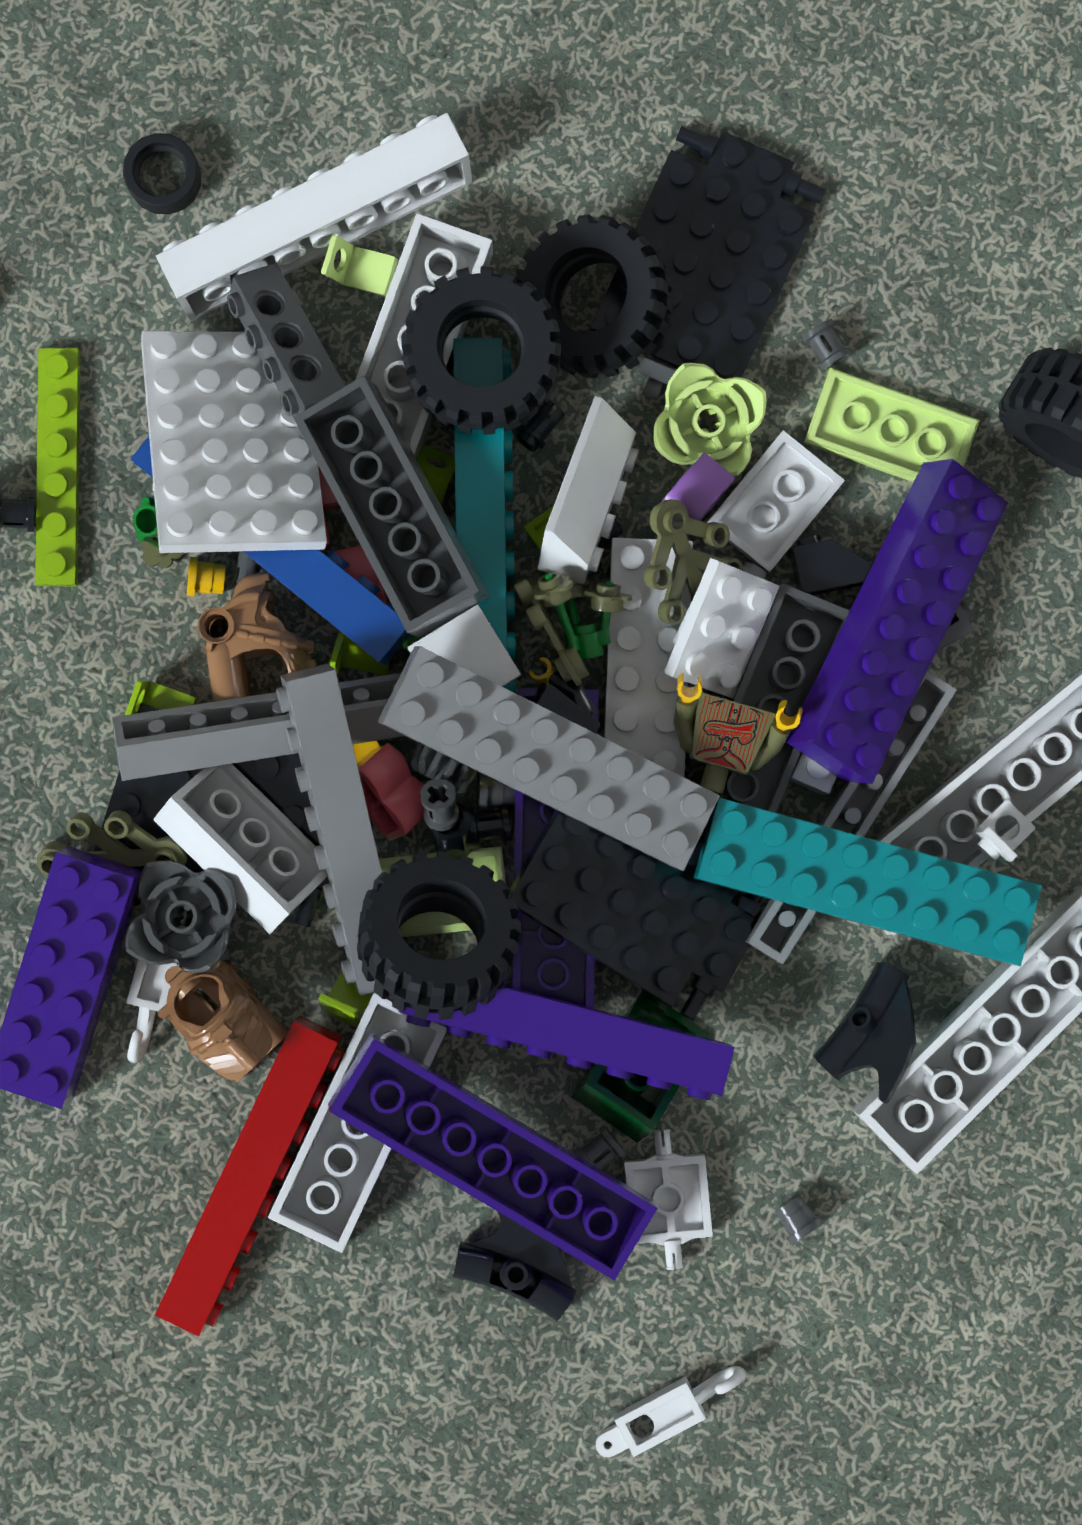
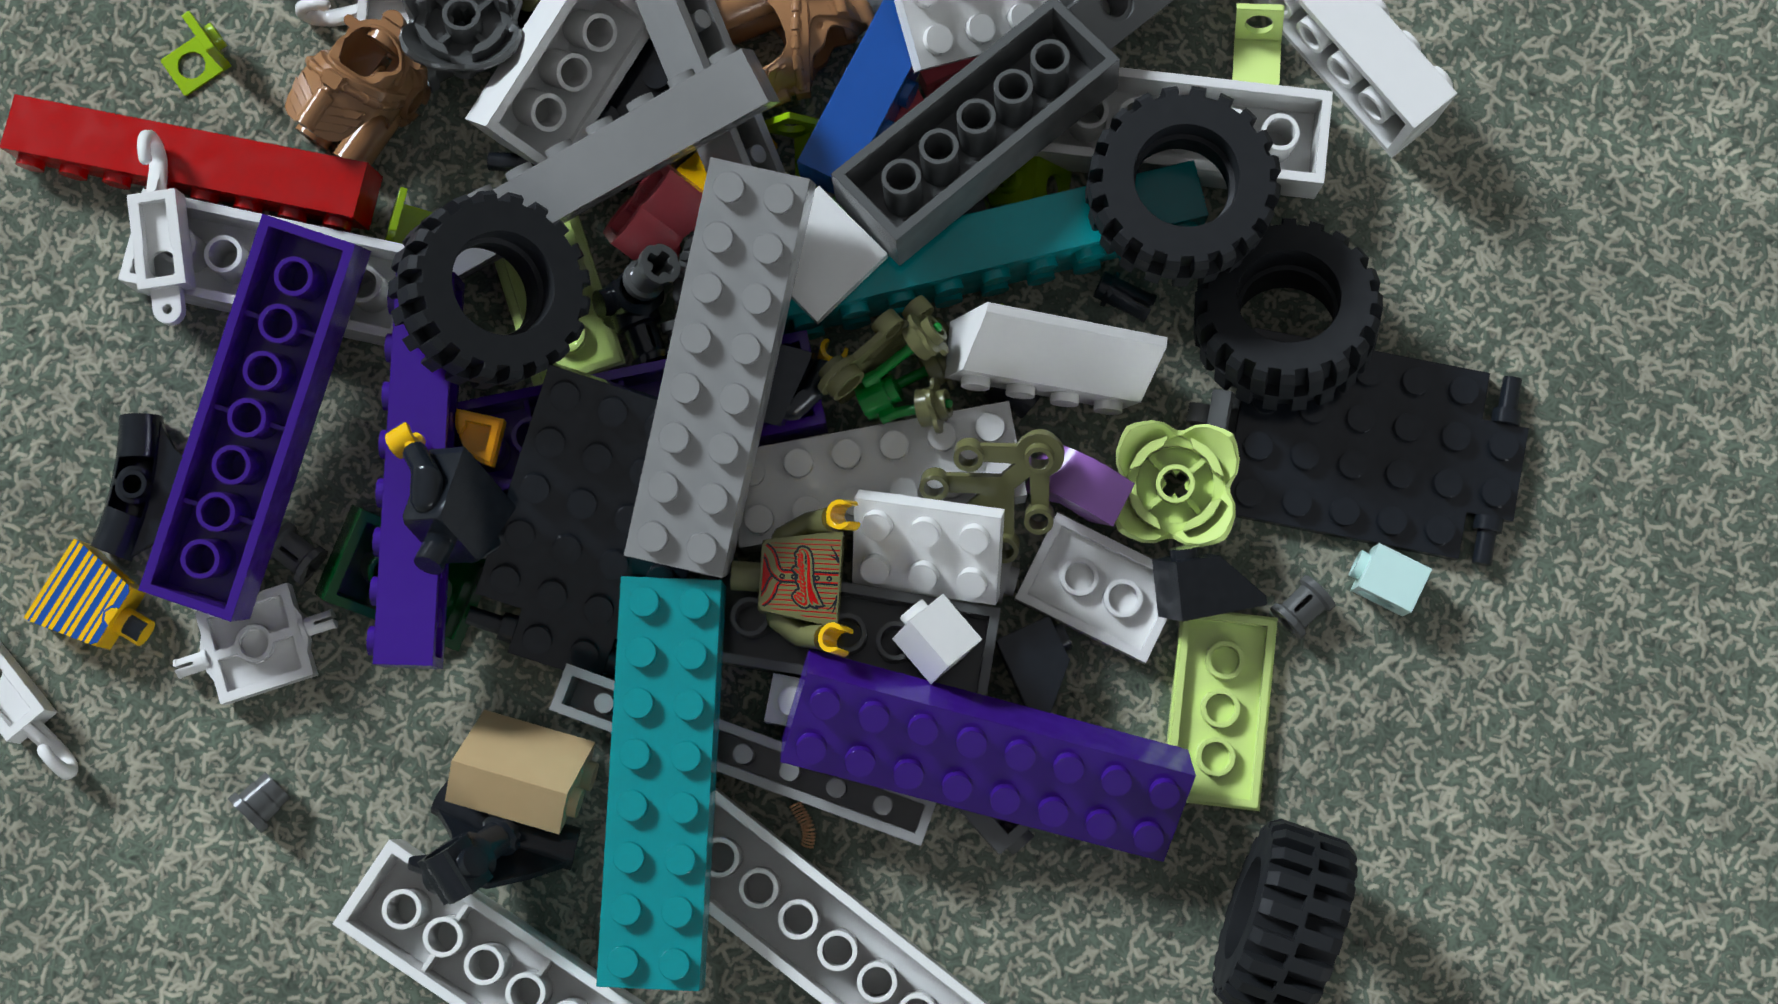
camera: 85 degrees right, 5 degrees down
(145, 1142) = (206, 43): none -> lime bracket
(308, 1207) = (160, 226): none -> white piece
(546, 974) = (480, 435): none -> light orange tile
(603, 1328) = (91, 600): none -> yellow torso
(608, 1001) = (451, 502): none -> black torso
(797, 421) = (1200, 585): none -> black slope
(799, 637) = (935, 637): none -> white brick
(820, 271) = (1389, 578): none -> light aqua brick
(827, 996) = (522, 772): none -> tan brick
(897, 1055) = (468, 859): none -> black connector
(916, 782) = (805, 827): none -> light nougat leg
(991, 844) = (740, 931): white bracket -> none

